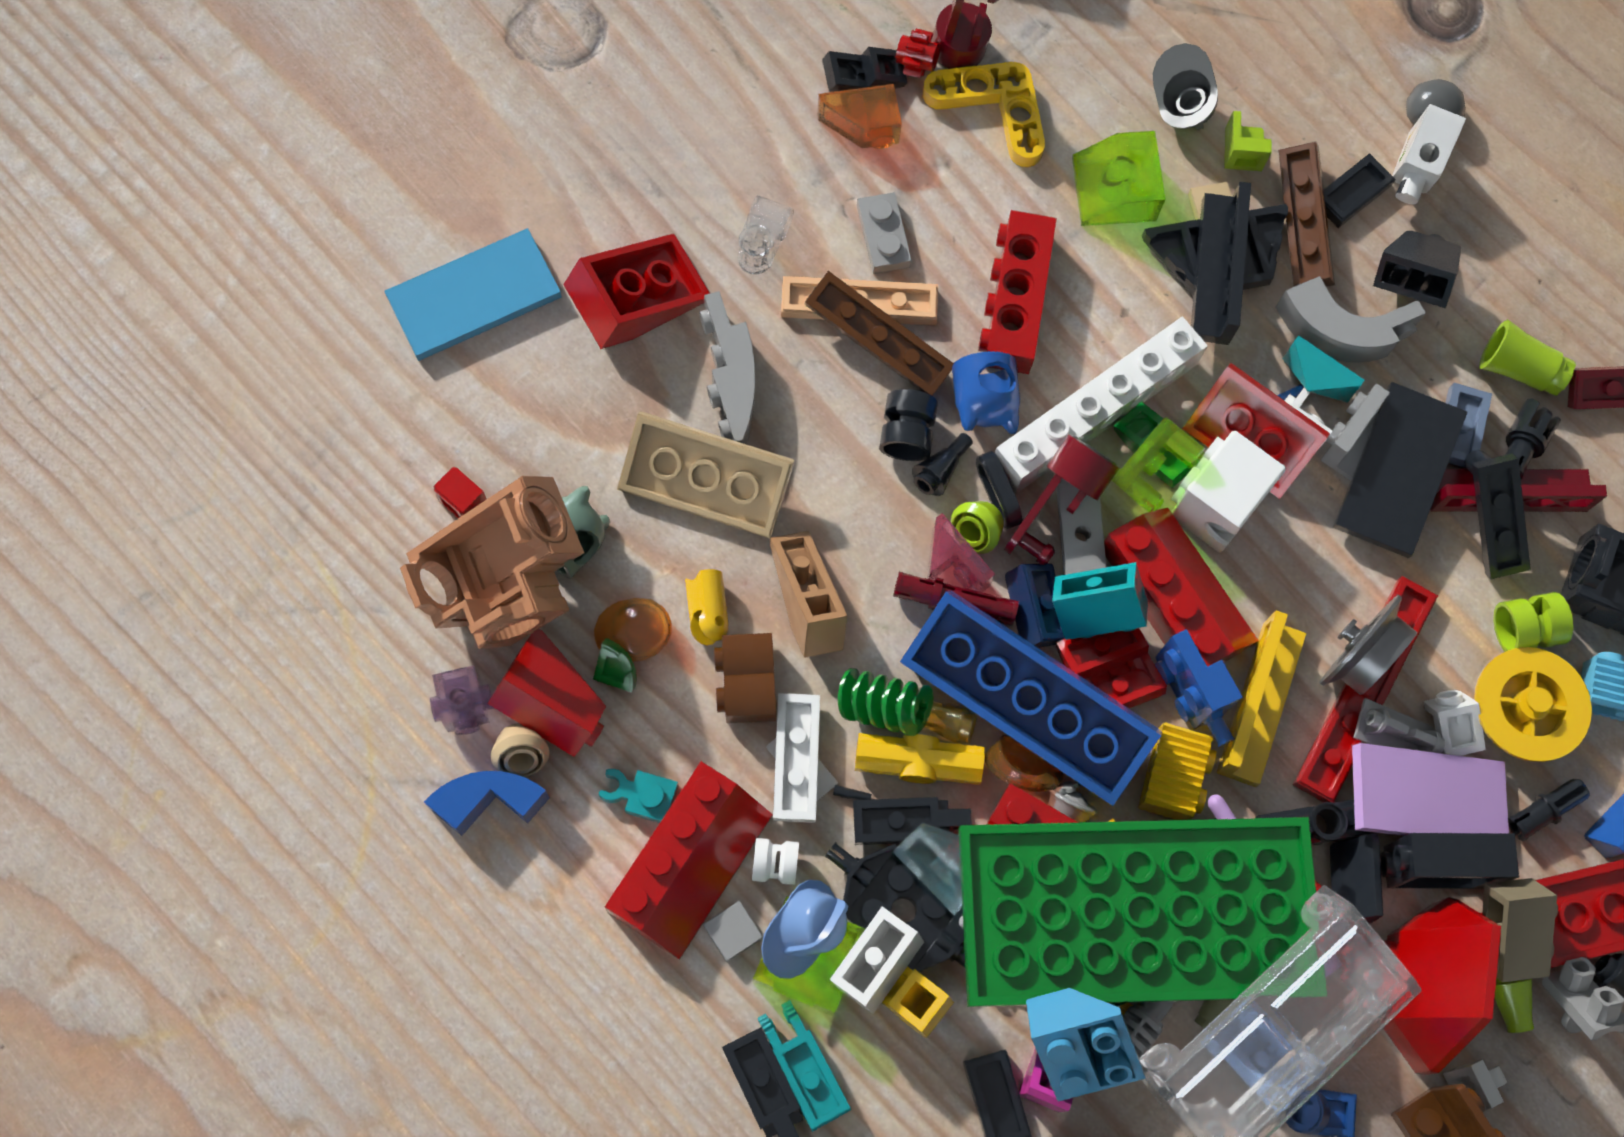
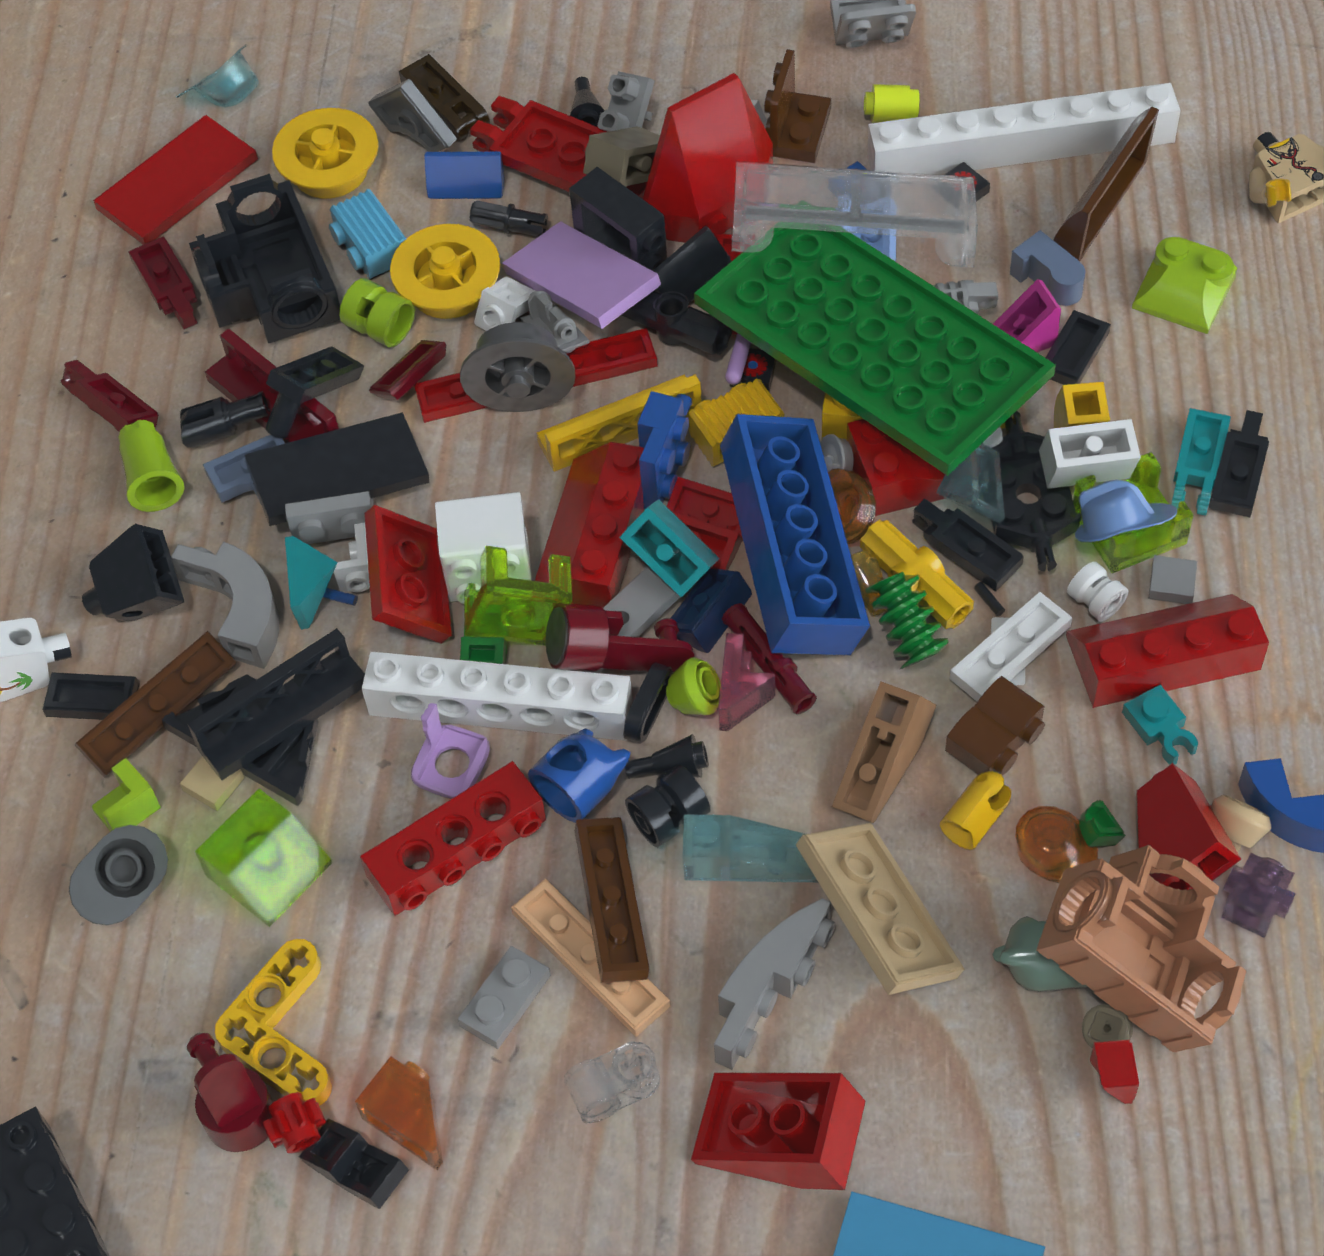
camera: 125 degrees left, 15 degrees down
(832, 441) = (741, 851): none -> clear light blue slope
(1082, 1043) = (1000, 289): dark azure slope -> none
(1090, 323) = (443, 738): none -> lavender piece
(1454, 602) = (409, 370): none -> dark red tile

